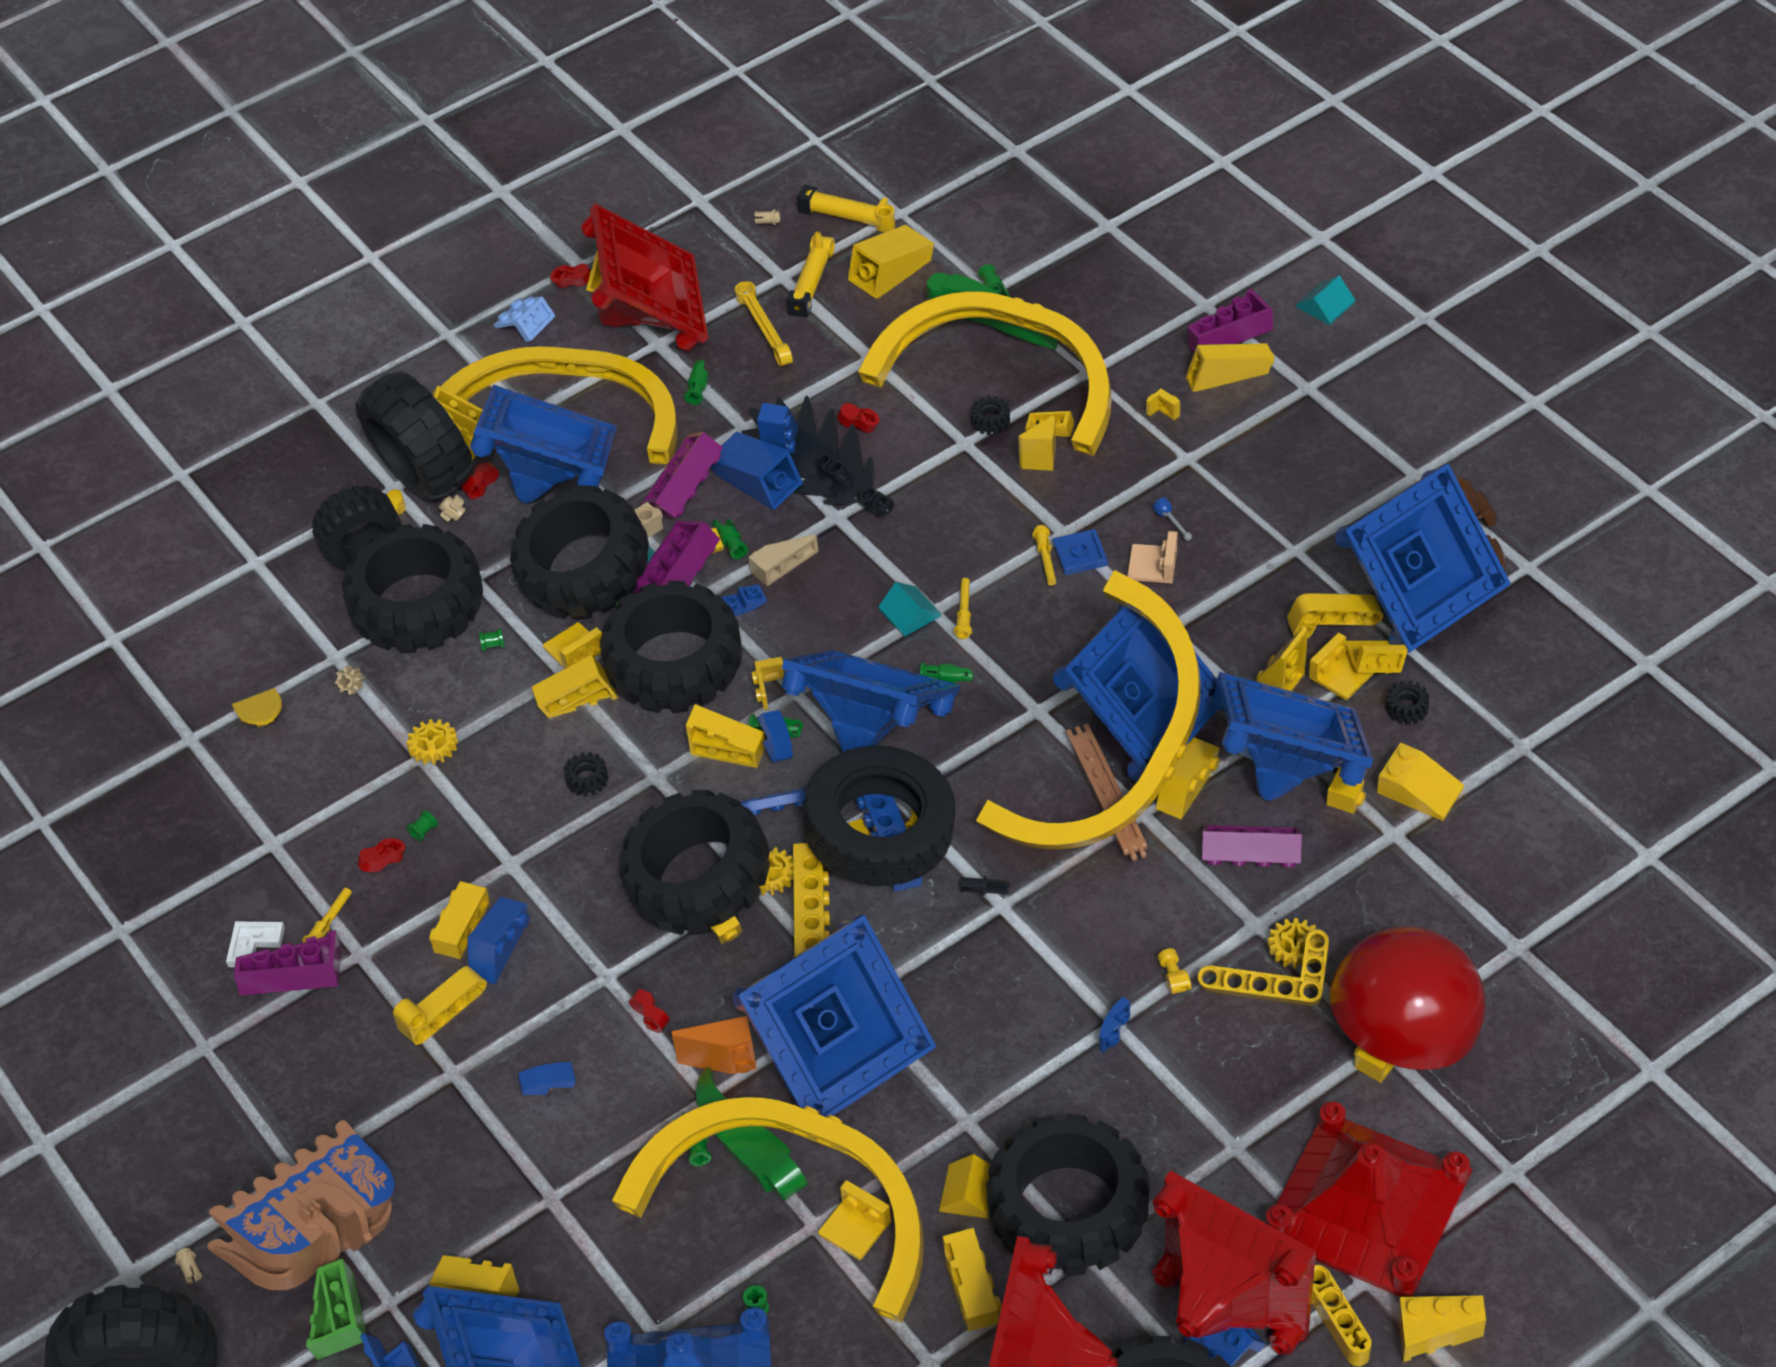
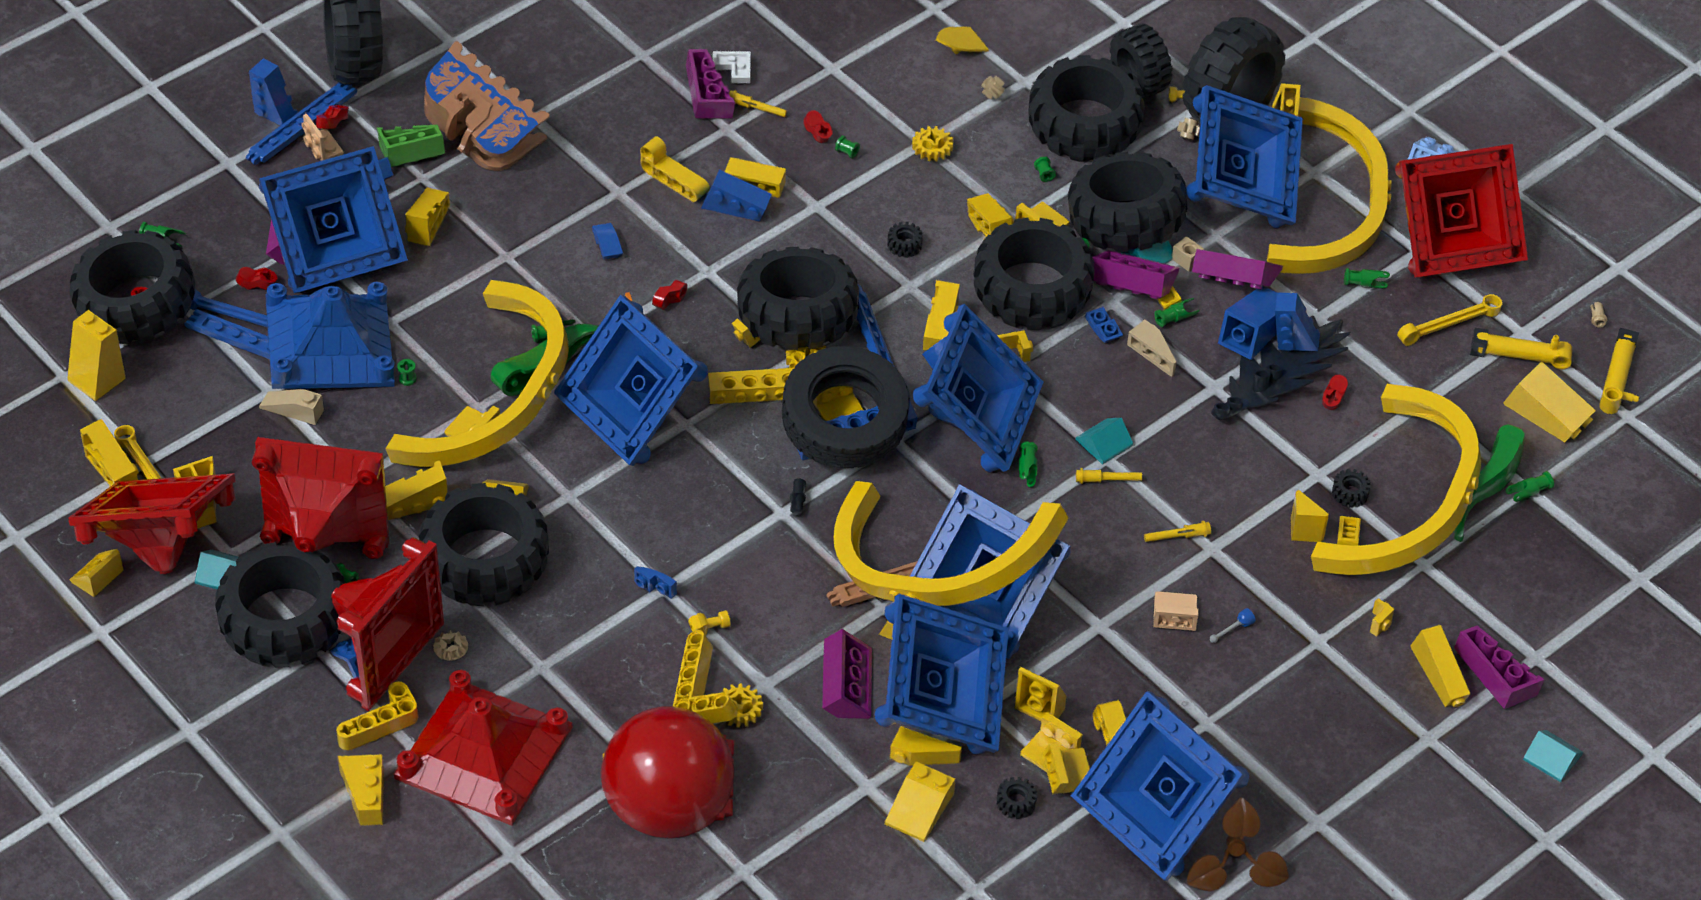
camera: 80 degrees right, 0 degrees up
(1080, 552) = (1186, 559): blue tile -> none

